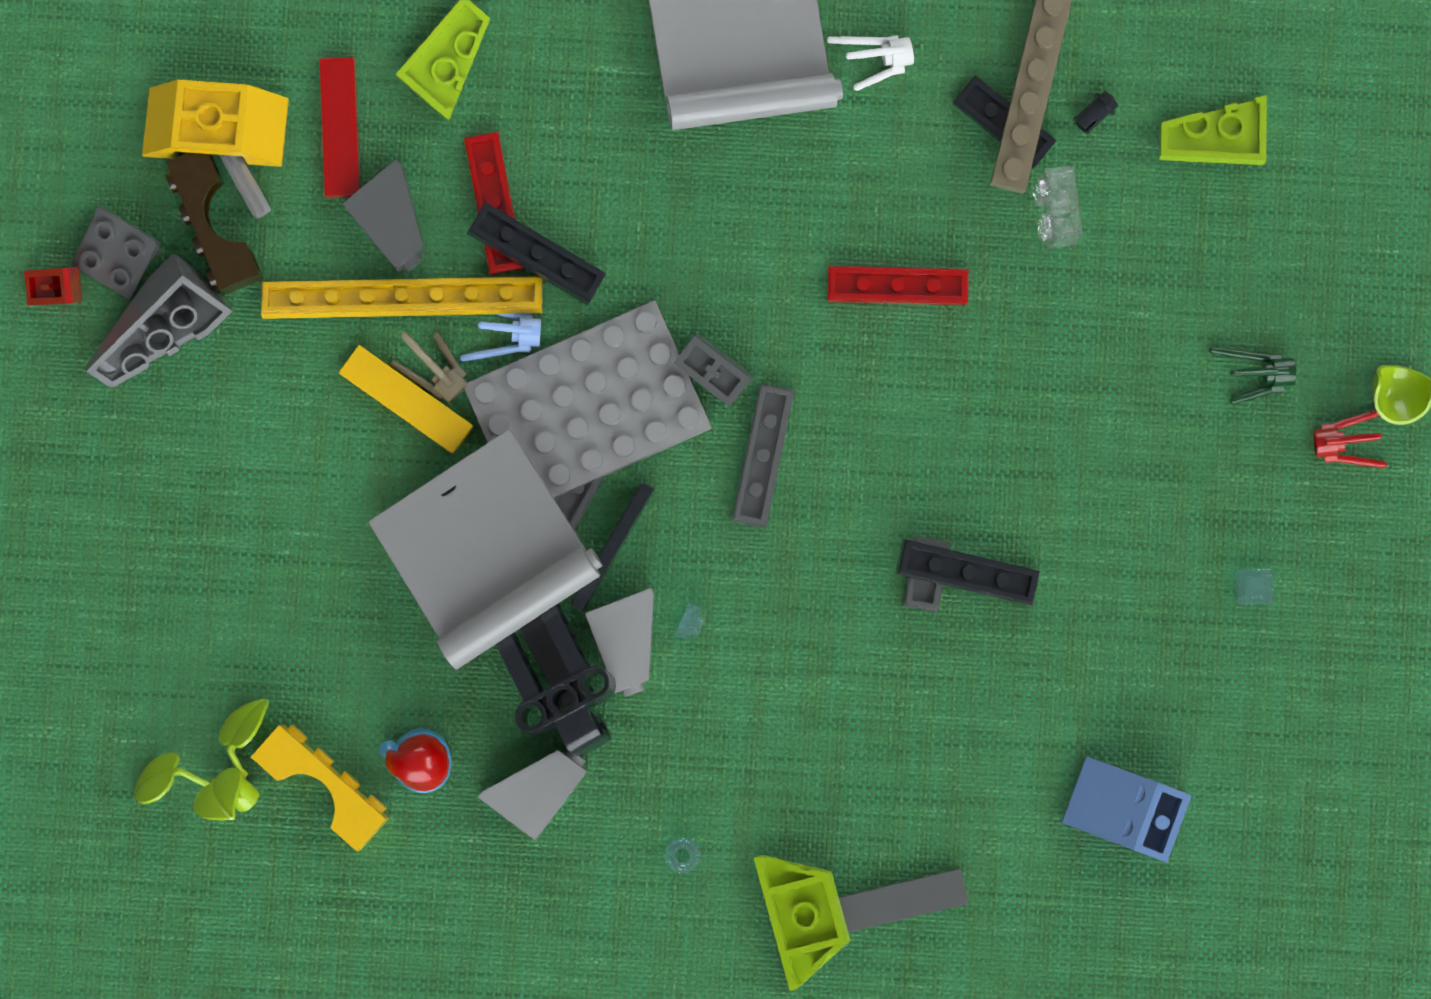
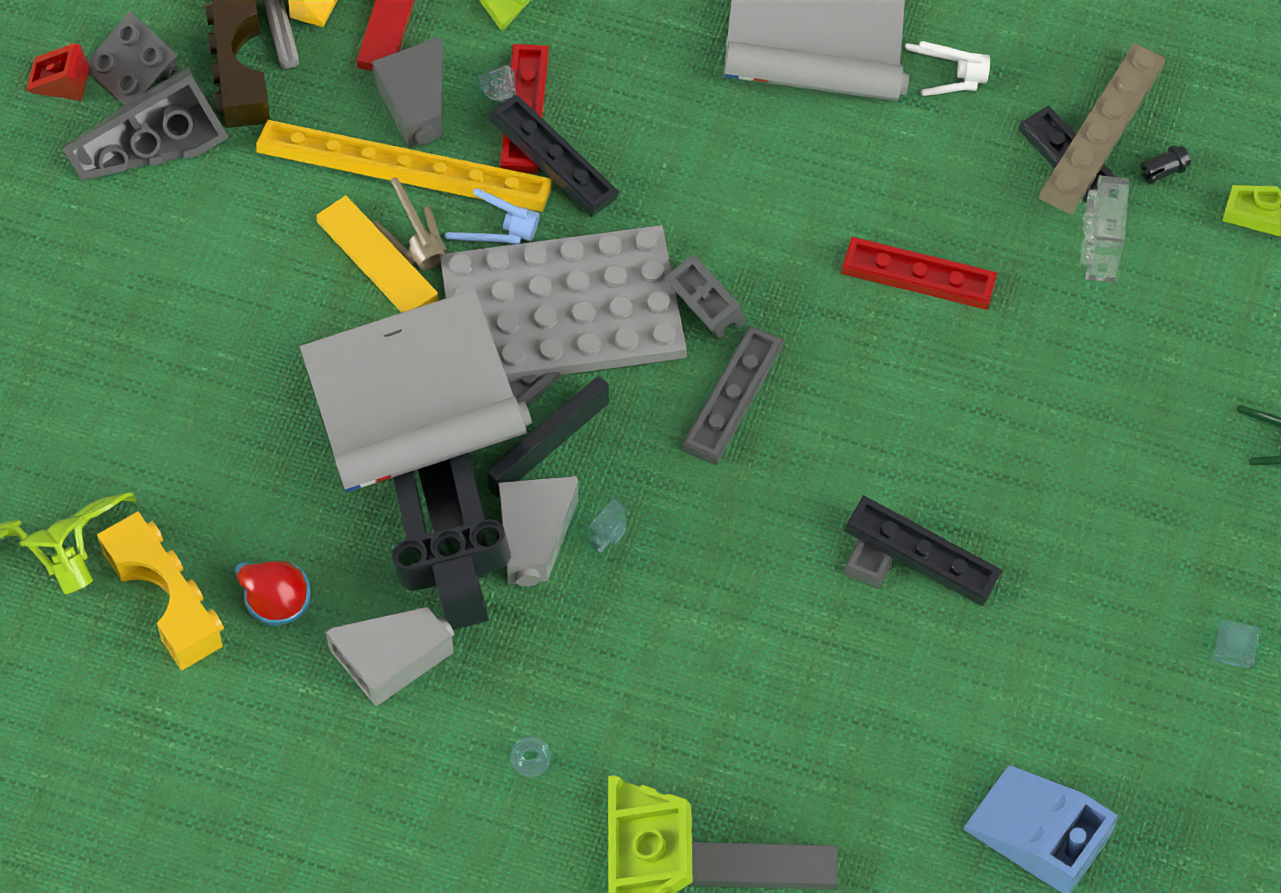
camera: 10 degrees right, 25 degrees down
(464, 188) = (498, 84): none -> clear light blue tile

